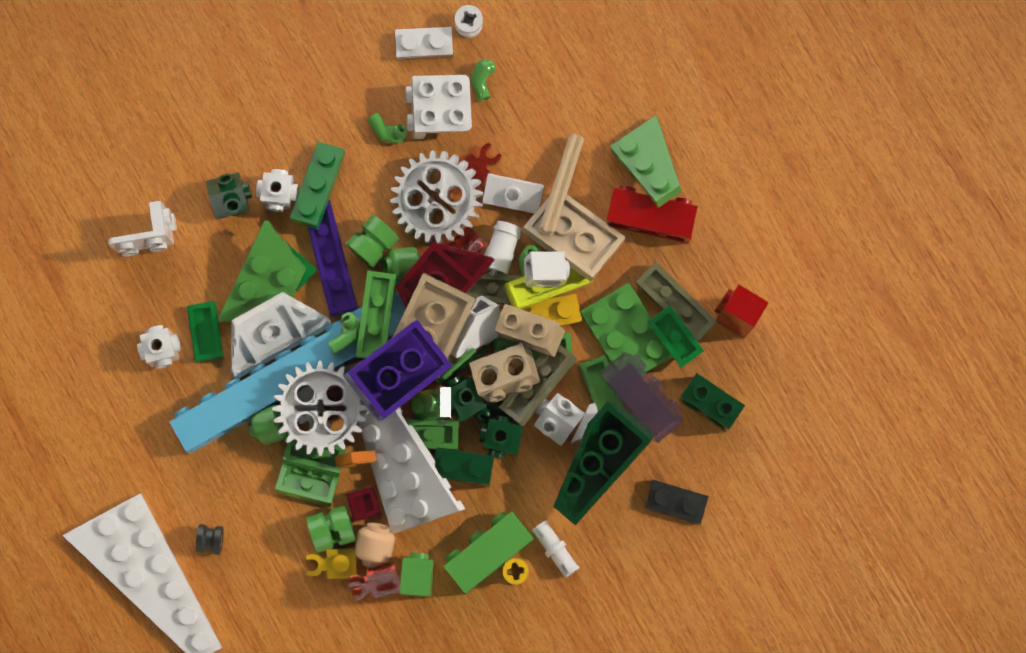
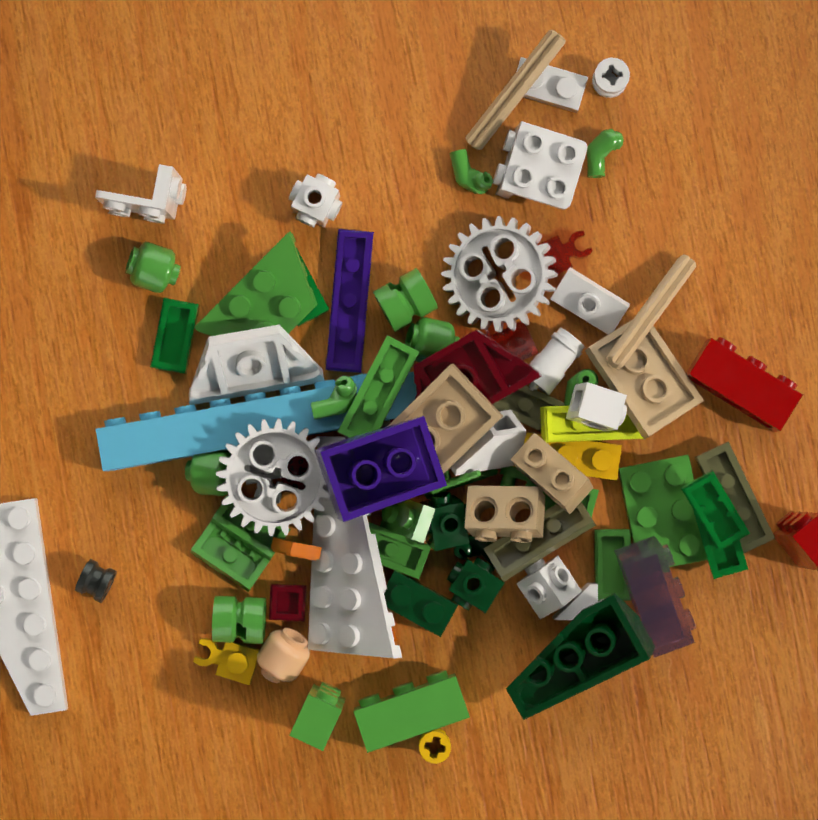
camera: 25 degrees right, 5 degrees up
(166, 354) = (125, 344): white brick -> none
(170, 285) = (152, 267): none -> bright green head
(228, 195) = (257, 185): dark green brick -> none
(317, 185) = (365, 210): green plate -> none
(379, 580) = (273, 699): clear red plate -> none
(399, 55) = (515, 89): none -> tan axle
(555, 549) = (490, 735): white pin -> none
(649, 161) = (764, 321): bright green wing -> none
(662, 314) = (715, 510): none -> green plate
(676, 501) = (650, 730): pearl dark grey plate -> none
(711, 402) = (734, 631): dark green brick -> none

